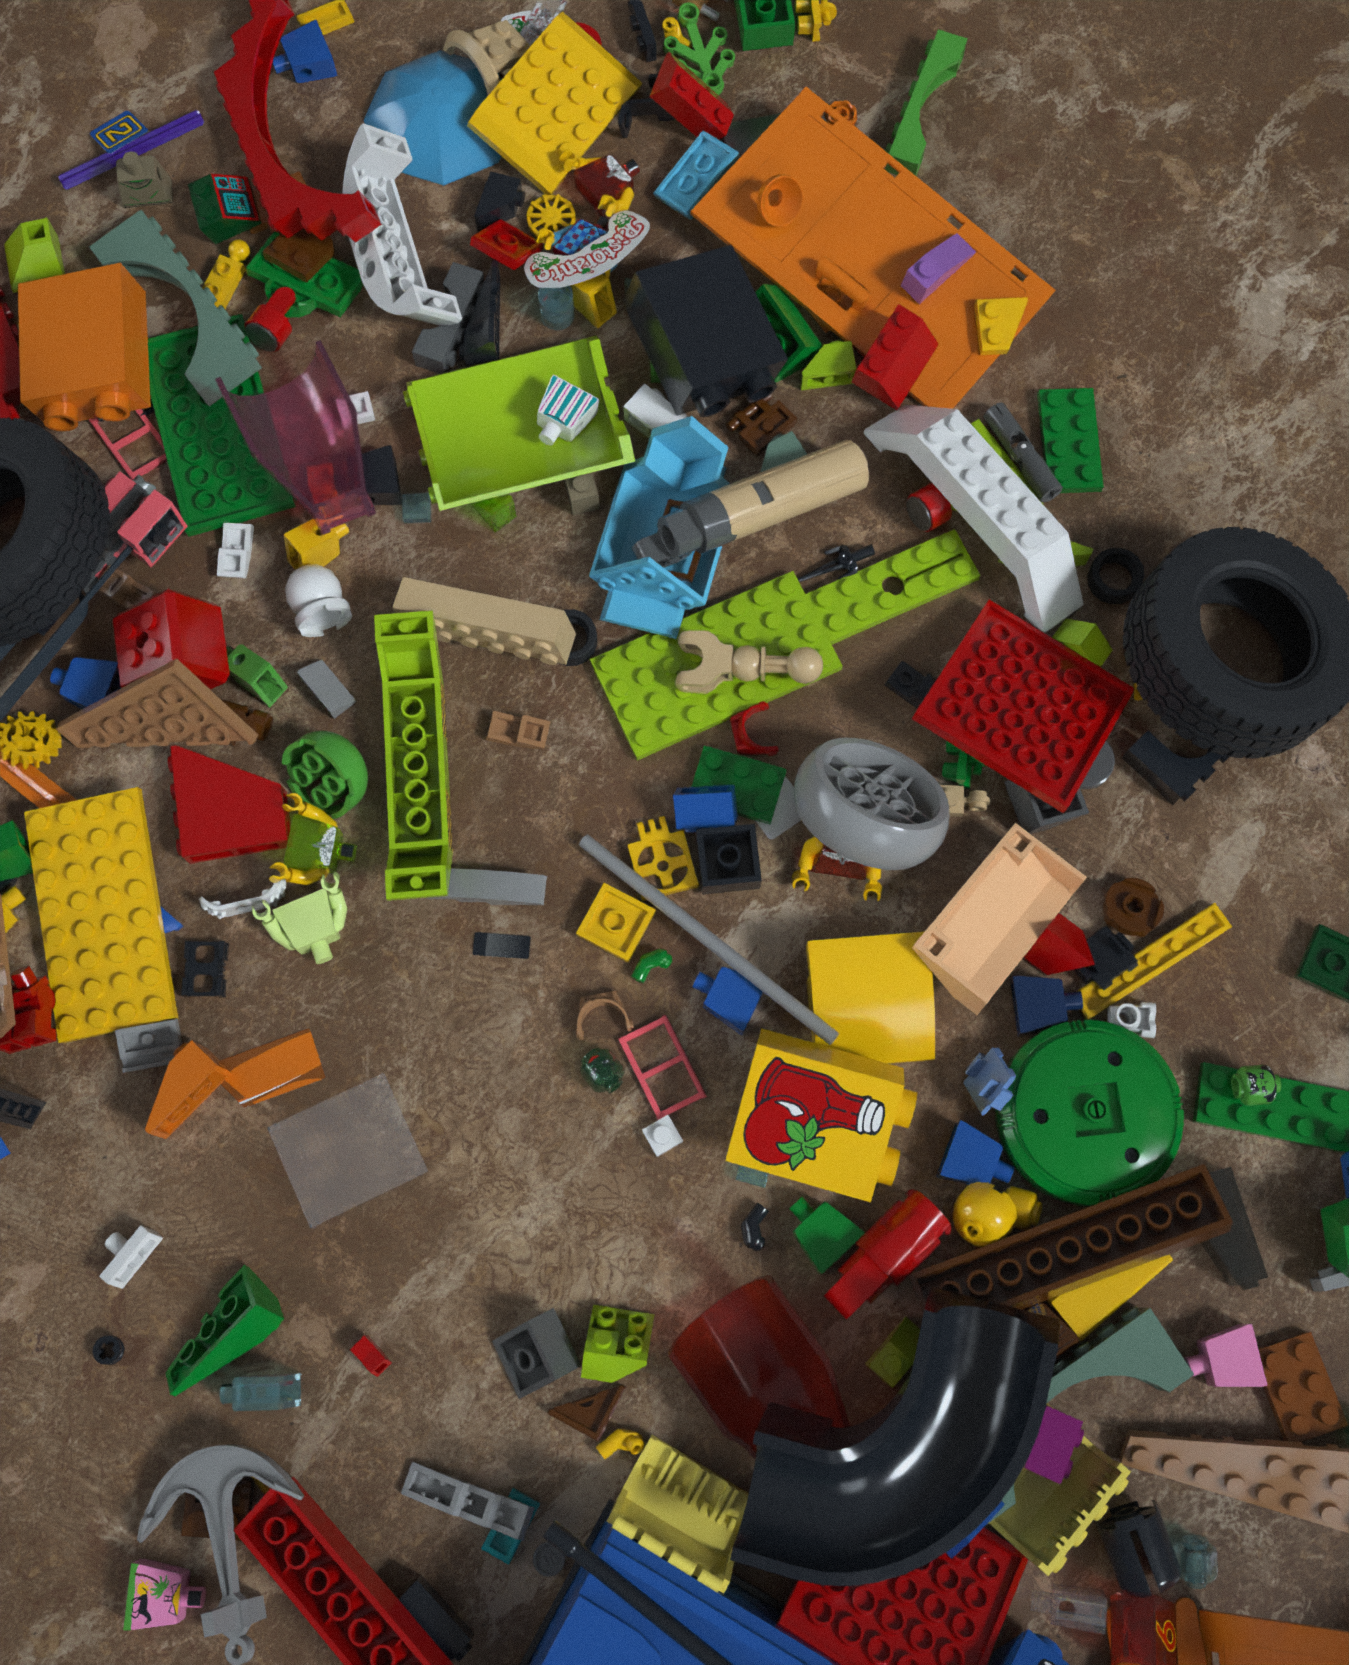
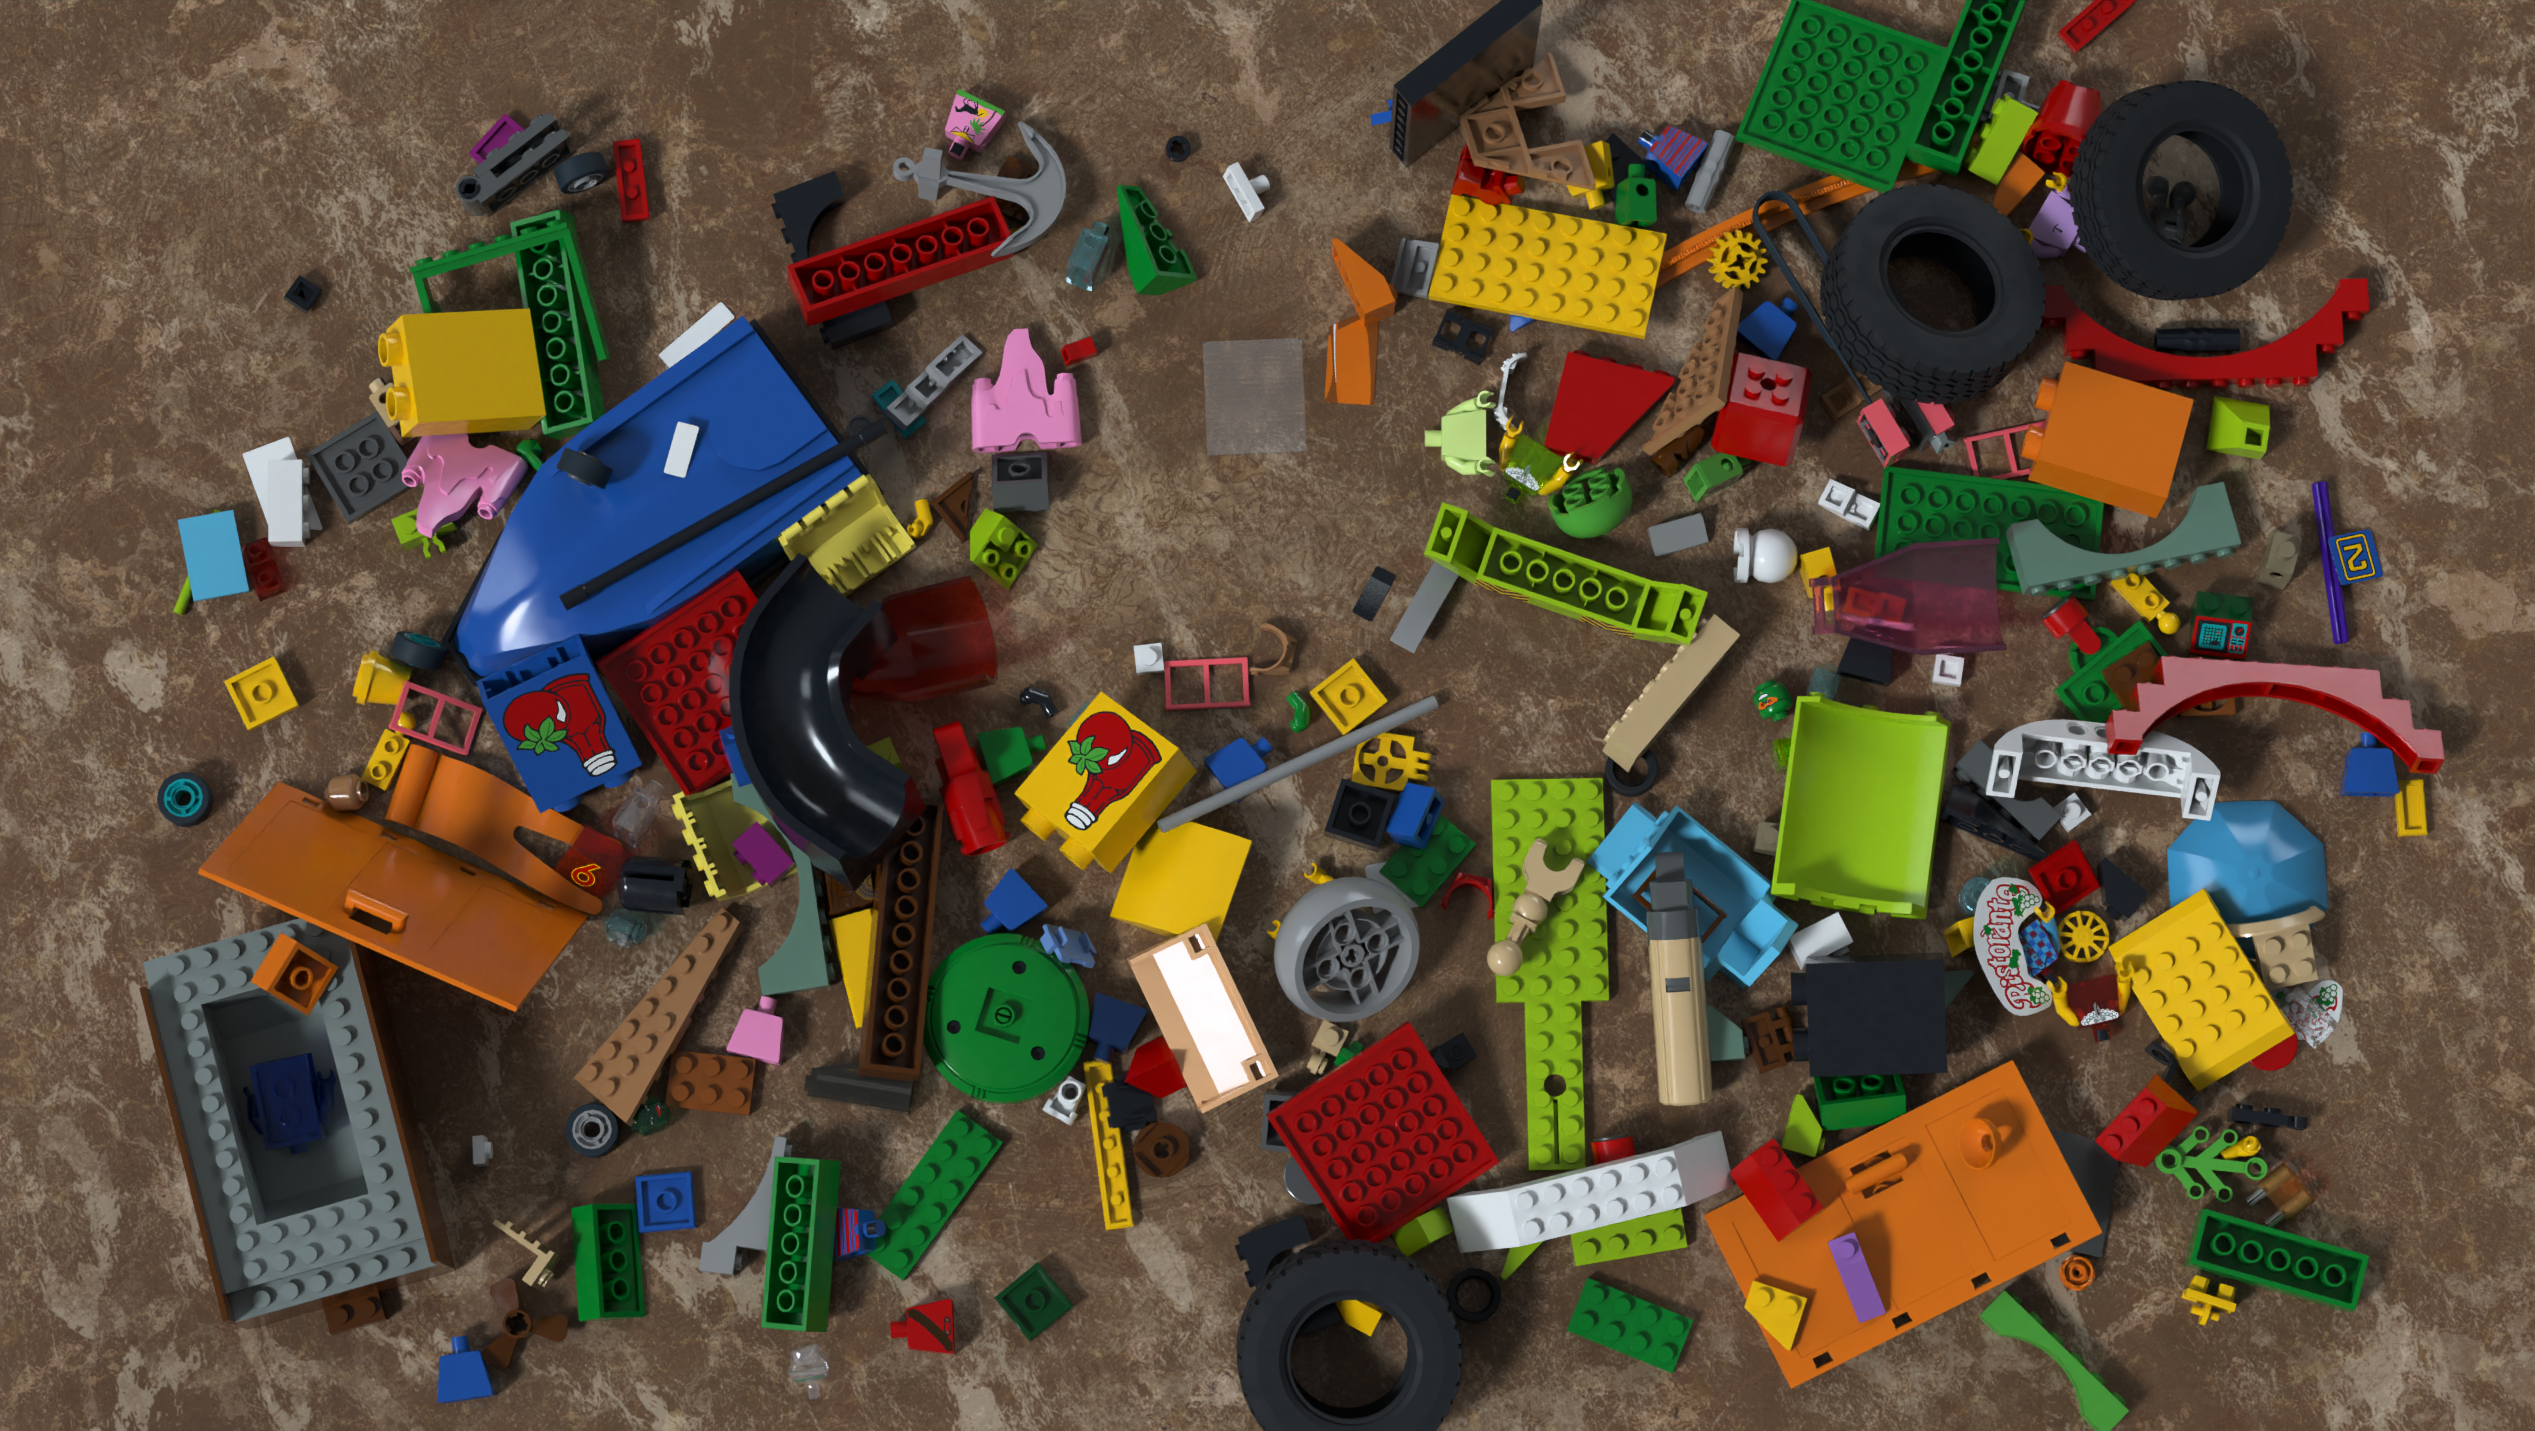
camera: 115 degrees right, 5 degrees up
(441, 263) = (2072, 812): none -> white plate
(451, 539) = (1772, 700): none -> green head
(453, 1392) = (1021, 406): none -> bright pink rock
(518, 731) = (1563, 687): medium nougat slope -> none
(564, 411) = (1856, 854): white torso -> none
(602, 1070) = (1225, 630): clear green head -> none
(696, 173) = (2061, 1092): medium azure tile -> none
(845, 560) = (1599, 1054): black piece -> none
(983, 1214) = (962, 885): yellow cylinder -> none
(1027, 1207) = (955, 923): yellow head -> none
(1030, 462) = (1613, 1268): dark grey piece -> none
(1255, 1084) = (963, 1168): bright green head -> none

